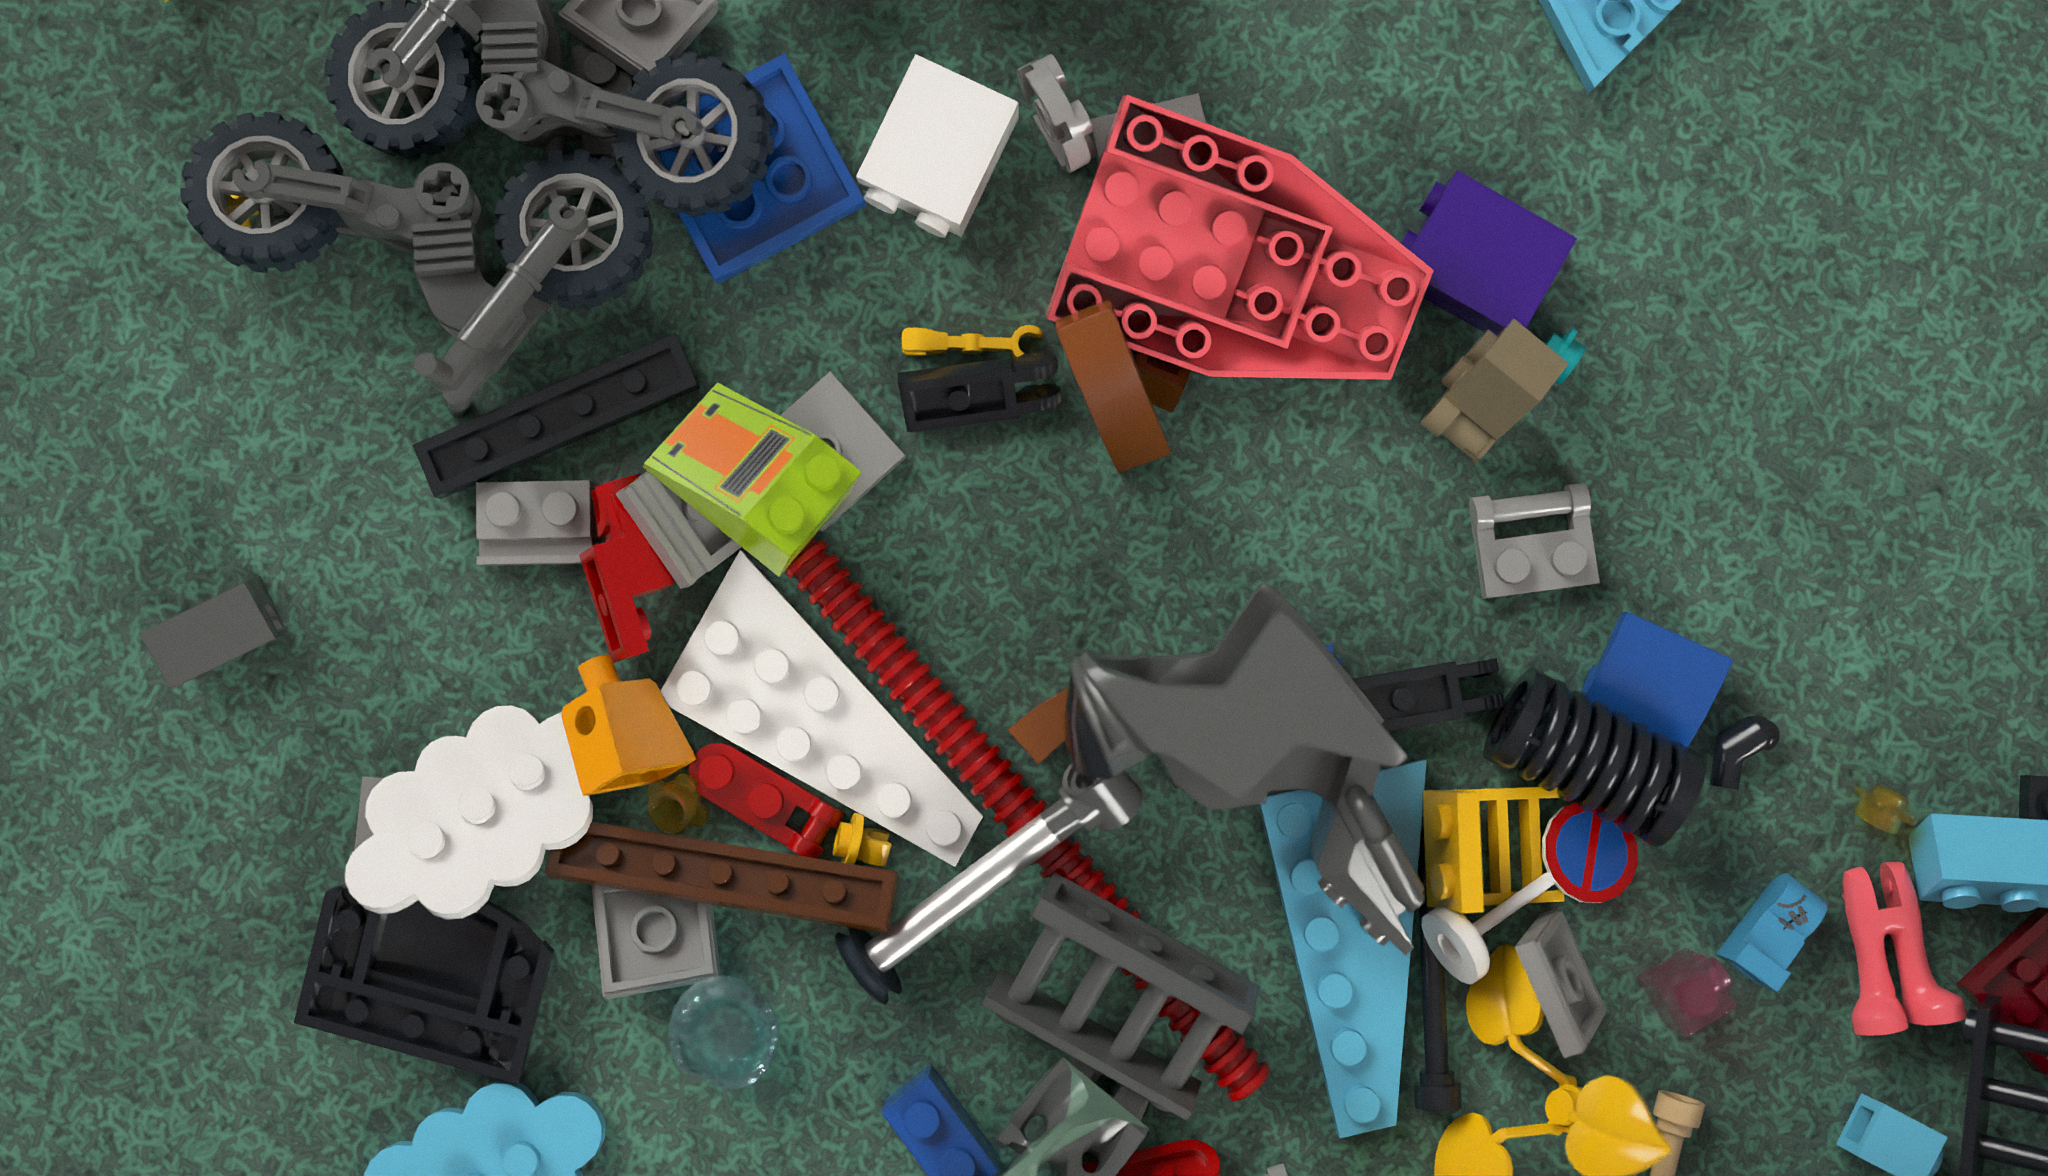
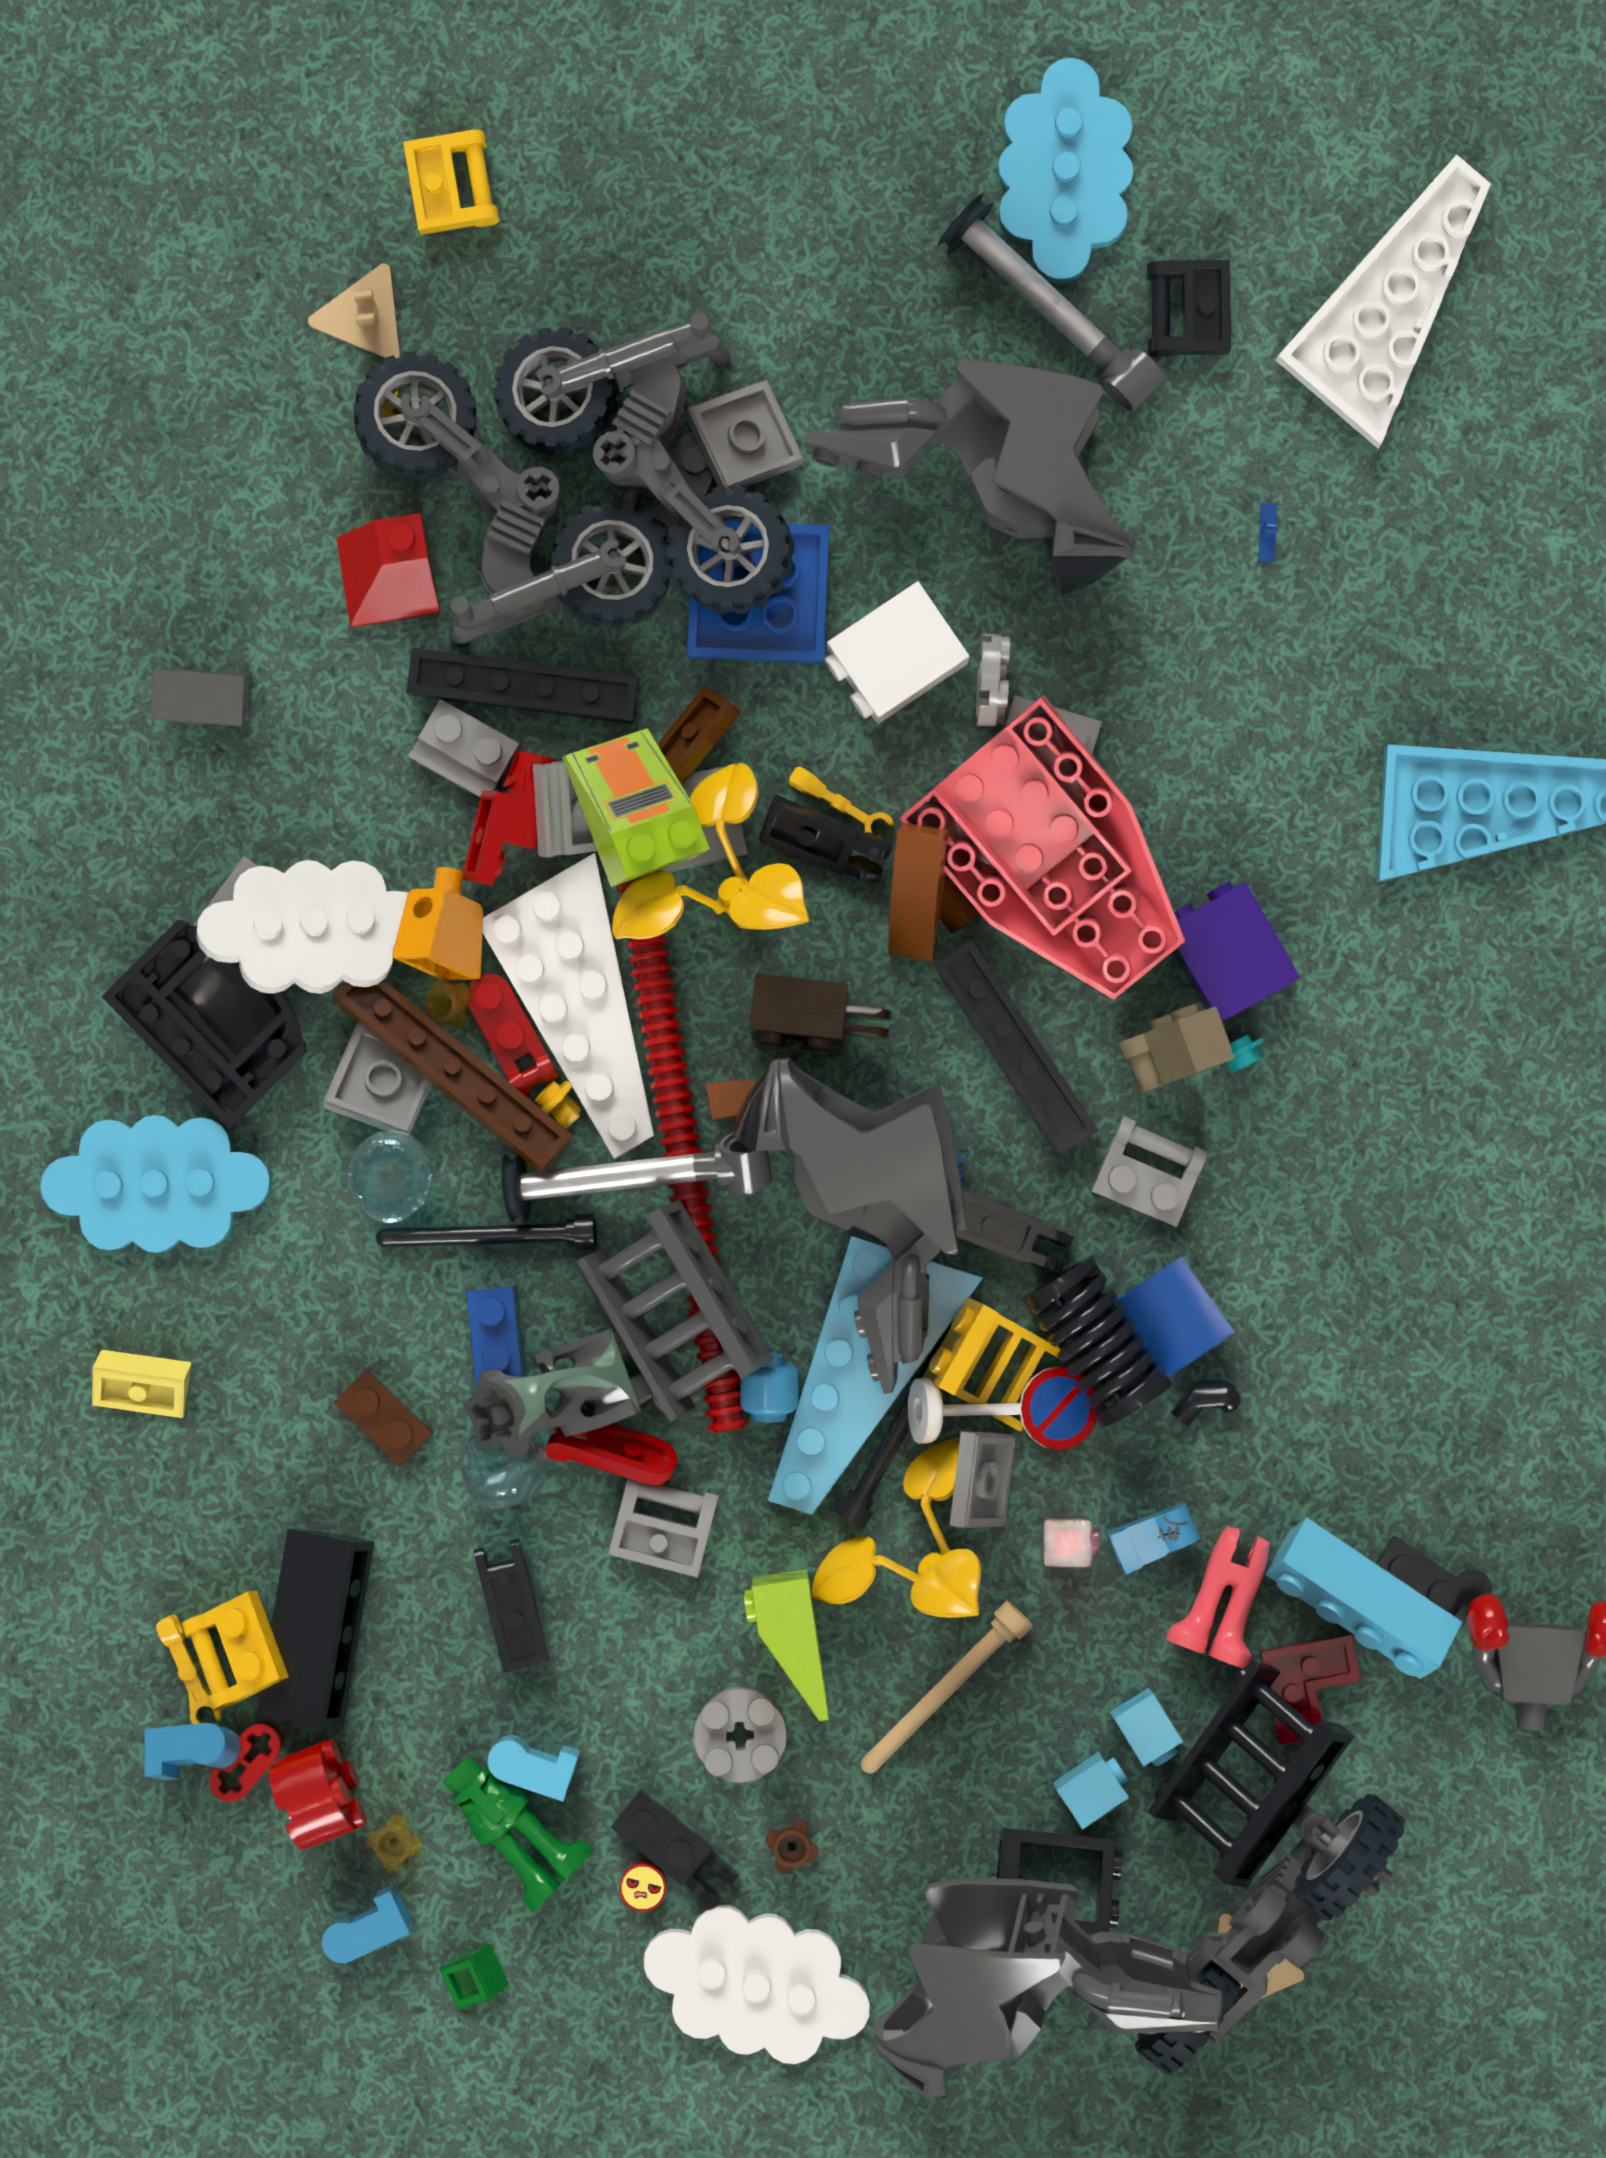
camera: 30 degrees right, 0 degrees up
(152, 121) = (363, 315): none -> tan piece
(339, 377) = (388, 571): none -> red slope
(773, 355) = (696, 732): none -> reddish brown plate
(959, 492) = (766, 902): none -> yellow plant
(961, 970) = (576, 1232): none -> black piece
(1073, 586) = (808, 1013): none -> dark brown brick
(1278, 1020) = (770, 1391): none -> dark azure head
(1314, 493) = (1015, 1047): none -> black plate
(1883, 808) = (1279, 1498): clear yellow plate -> none

